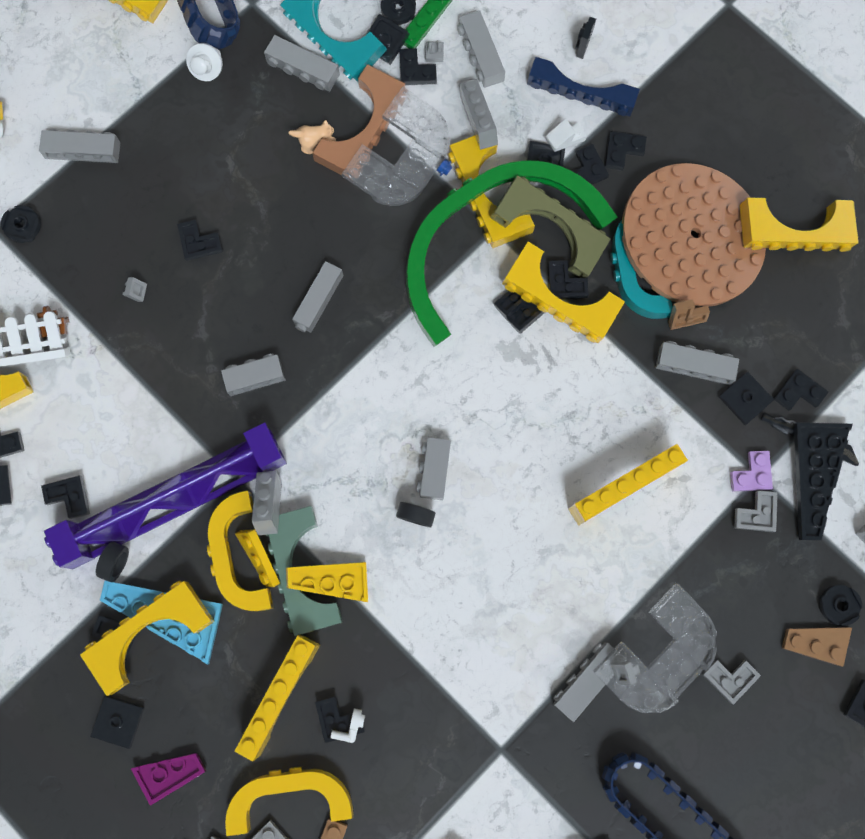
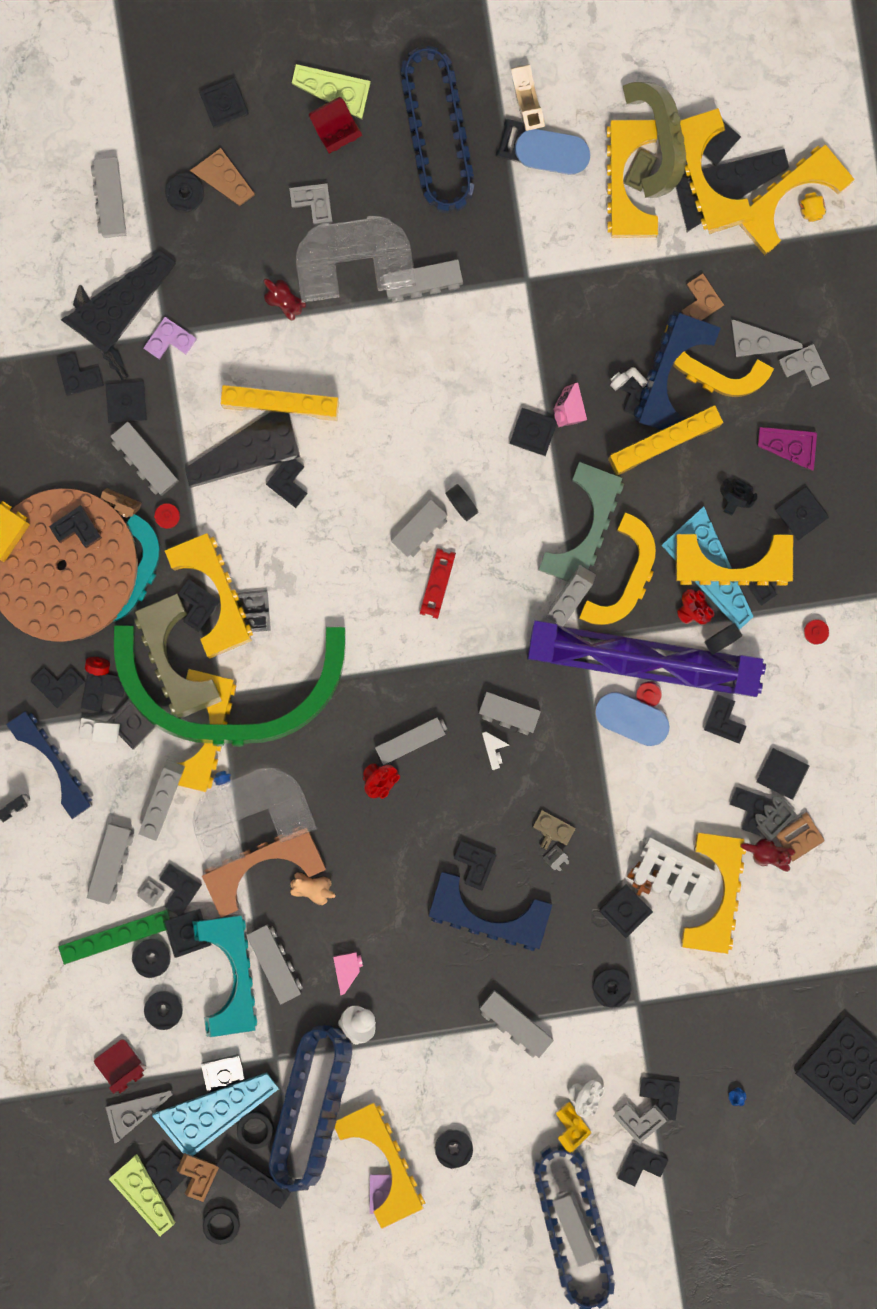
camera: 145 degrees left, 10 degrees up
(36, 627) = (816, 632): none -> red wheel
(49, 289) = (625, 911): none -> black plate
(70, 37) = (456, 1159): none -> black plate
(123, 217) = (525, 929): none -> dark blue arch
(147, 442) = (632, 718): none -> medium blue tile
(147, 472) = (649, 693): none -> red wheel
(153, 311) = (553, 829): none -> dark tan plate
(154, 570) = (694, 608): none -> red plate
(183, 695) = (738, 494): none -> black tile
(243, 97) = (347, 969): none -> bright pink slope
(249, 341) = (491, 744): none -> white slope
(258, 556) = (607, 561): yellow wing -> none
(320, 249) = (379, 780): none -> red plate
(329, 803) = (681, 335): none -> dark blue arch
(335, 580) = (562, 499): yellow wing -> none
(384, 665) = (570, 407): none -> bright pink slope
(387, 436) = (437, 583): none -> red plate
(399, 620) = (533, 432): none -> black plate
(573, 425) = (283, 483): none -> black plate
(605, 180) = (97, 666): none -> red wheel
(616, 439) = (255, 447): none -> black wing
(625, 672) = (393, 266): light grey tile -> none
(643, 332) = (167, 516): none -> red wheel
(695, 577) = (281, 296): none -> dark red animal
(710, 269) = (76, 522): none -> black plate
(764, 515) = (191, 301): light grey plate -> none
(769, 762) = (334, 125): none -> dark red bracket
(788, 796) = (333, 85): none -> yellowish green wing

